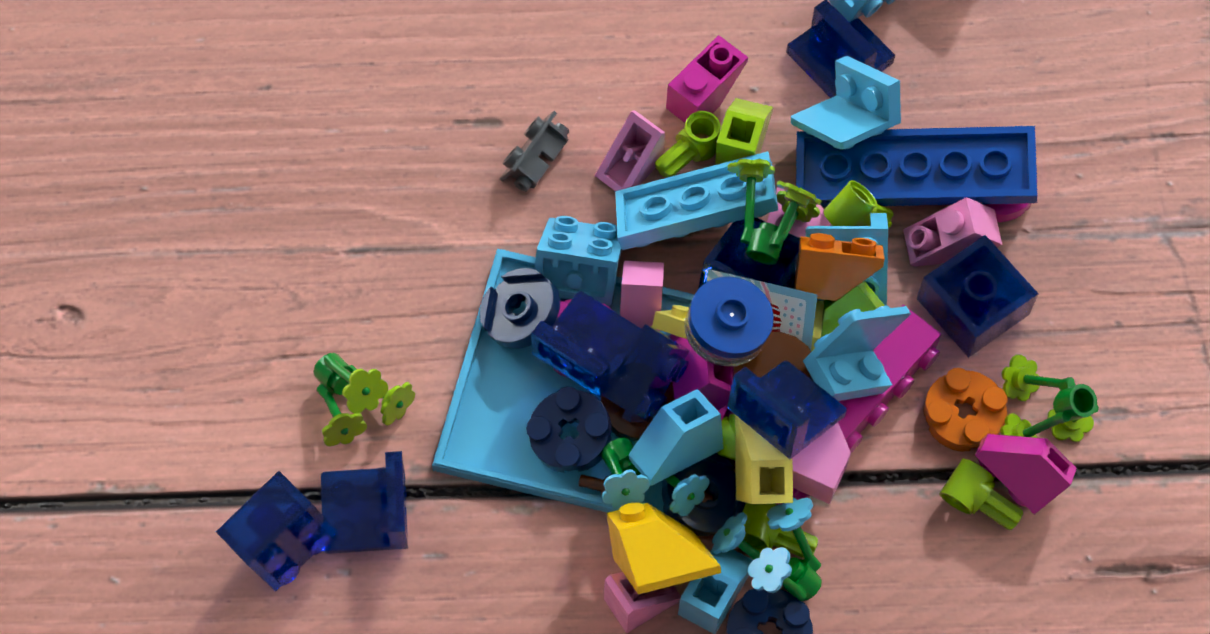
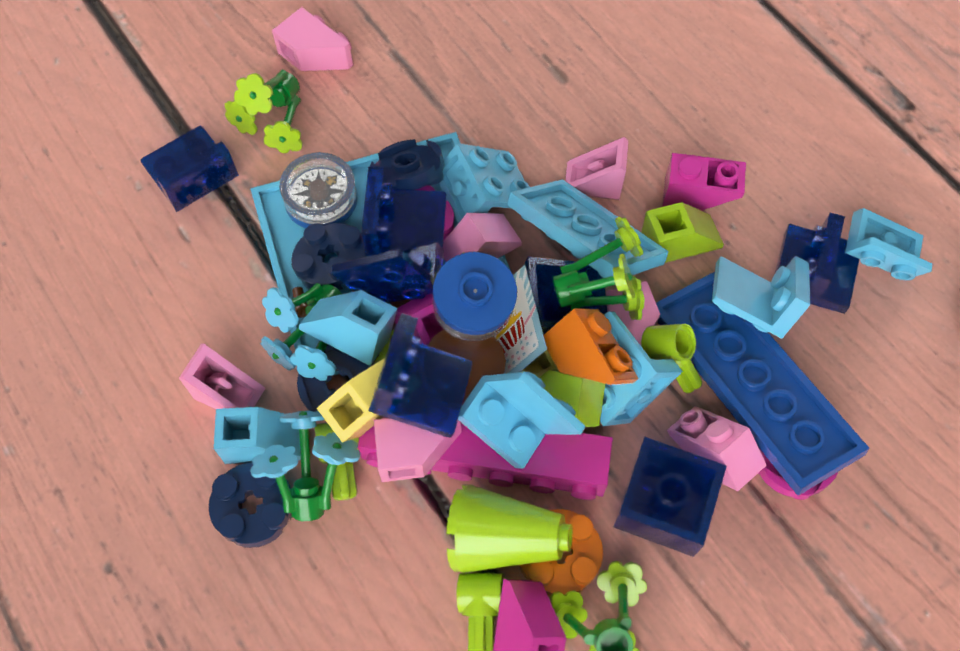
camera: 60 degrees right, 0 degrees up
(277, 531) = (120, 113): clear blue brick -> none
(297, 315) = (311, 43): none -> bright pink slope
(492, 400) = (318, 189): none -> clear piece
(542, 138) = (567, 109): dark grey hinge -> none
(656, 548) = (247, 367): yellow slope -> none
(689, 146) = (637, 204): lime axle -> none
(935, 432) = (502, 531): none -> lime cone

